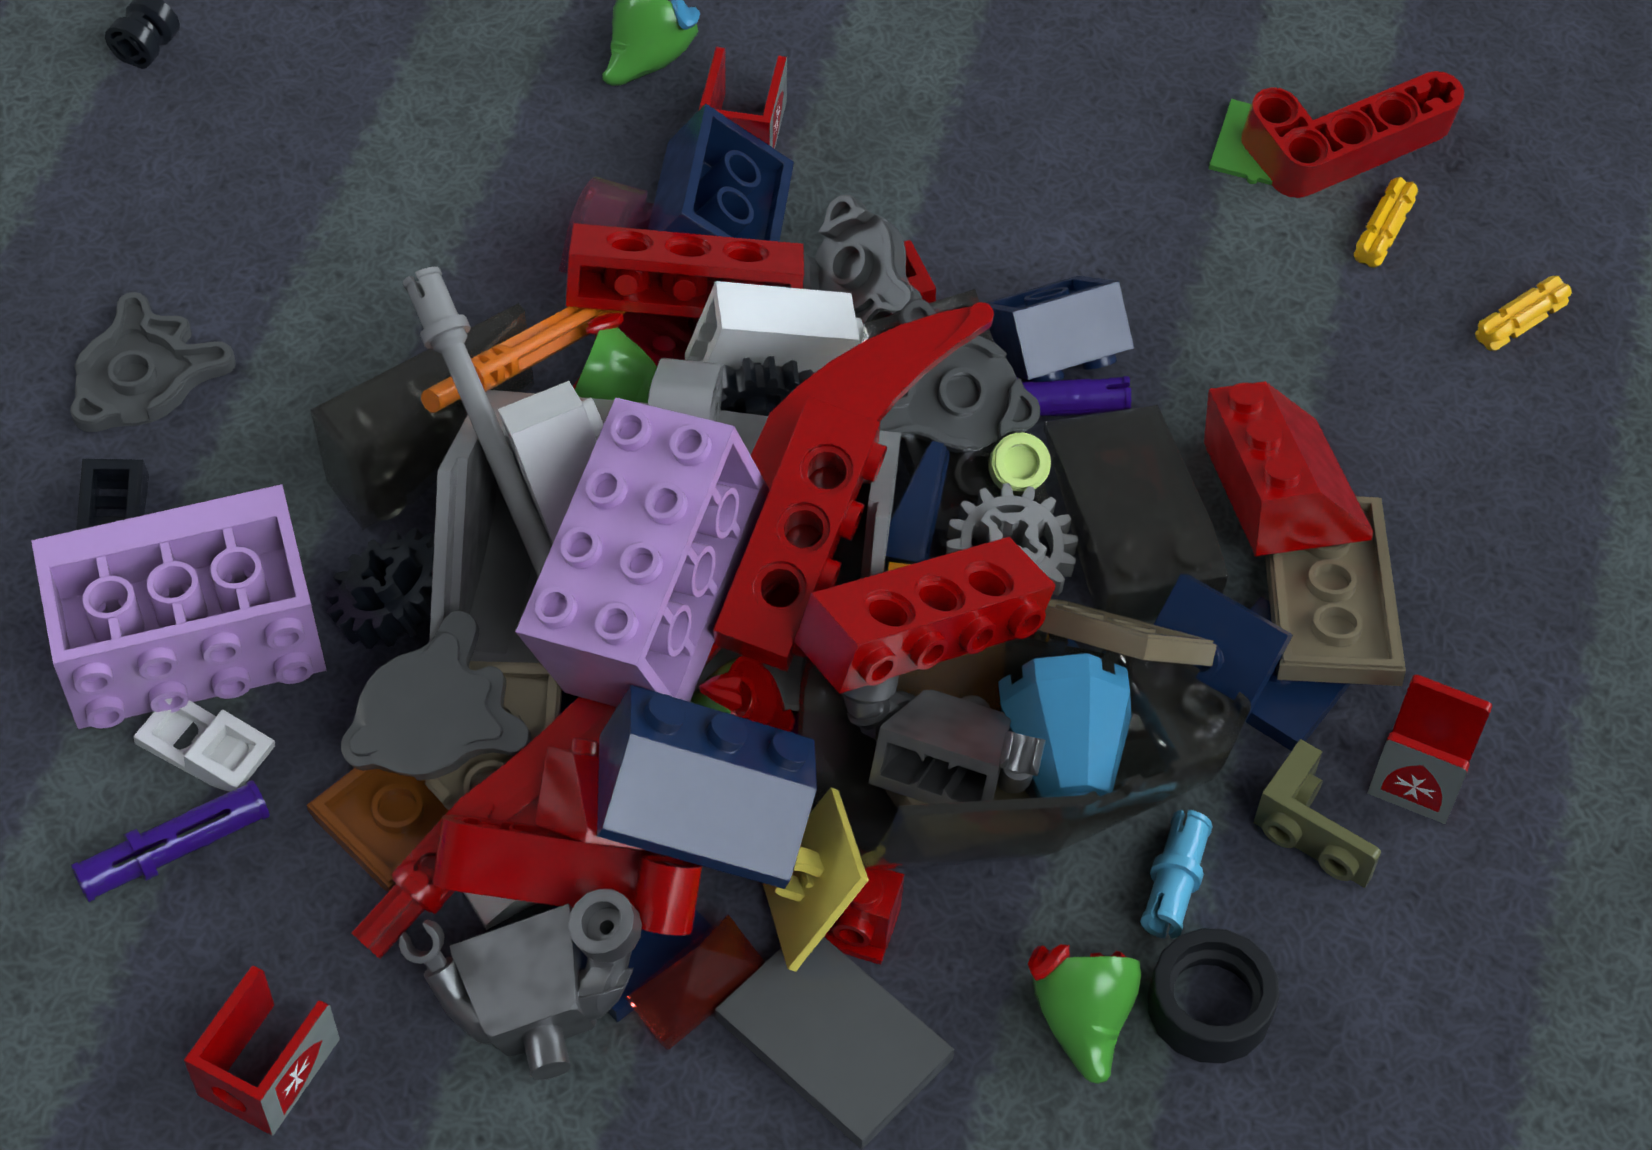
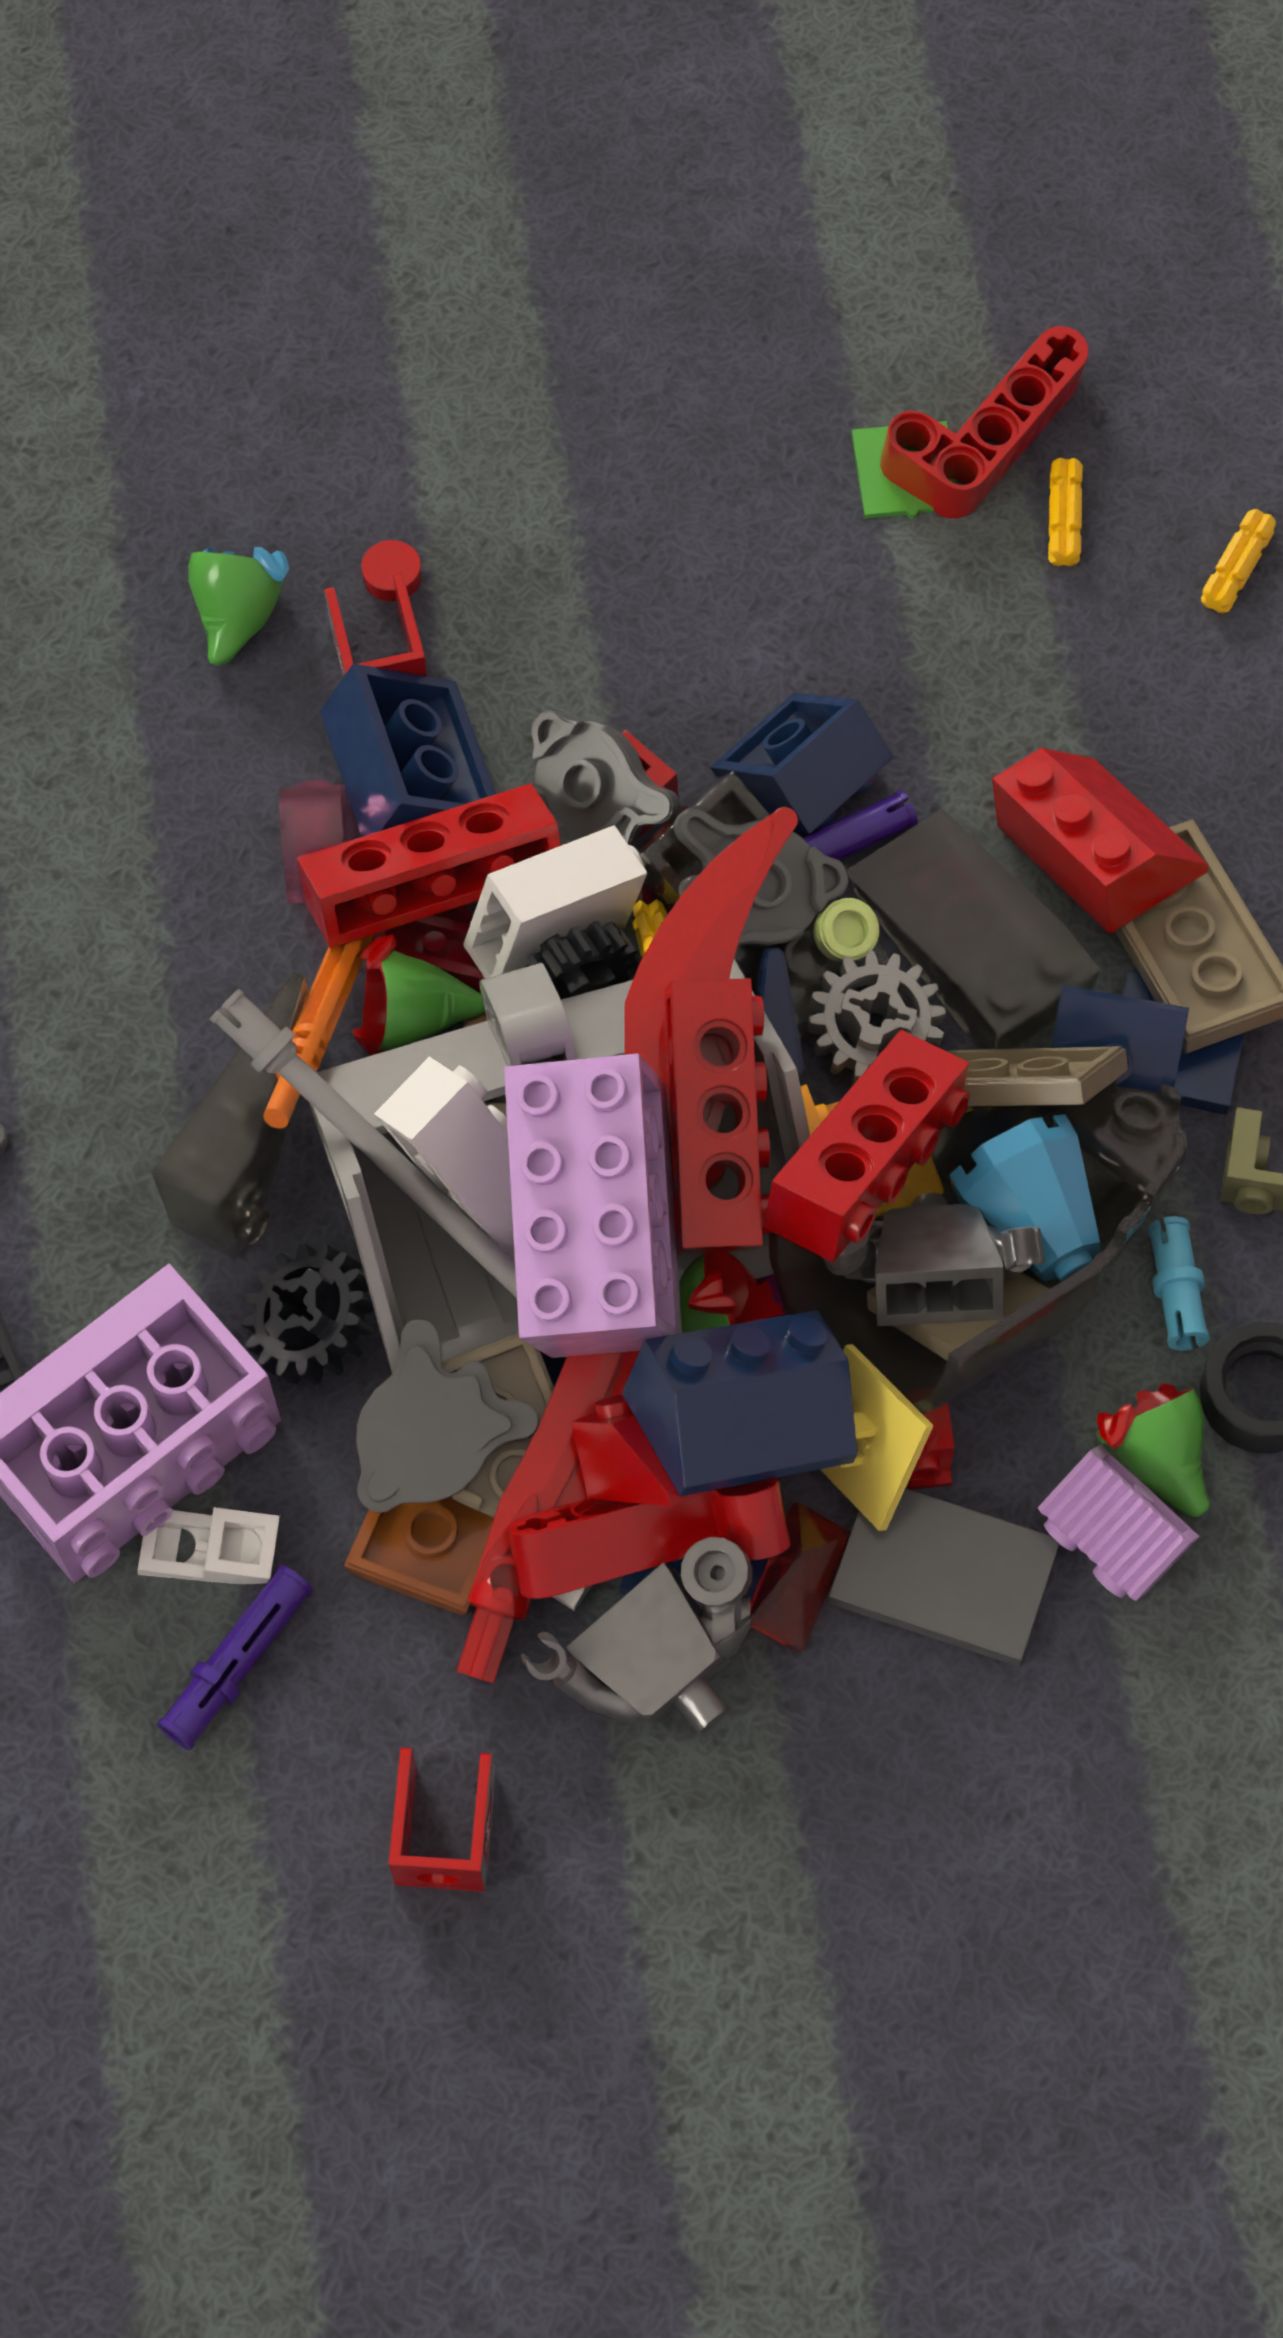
camera: 20 degrees left, 10 degrees up
(799, 64) = (388, 559): none -> red tile
(1009, 1054) = (1116, 1524): none -> lavender brick

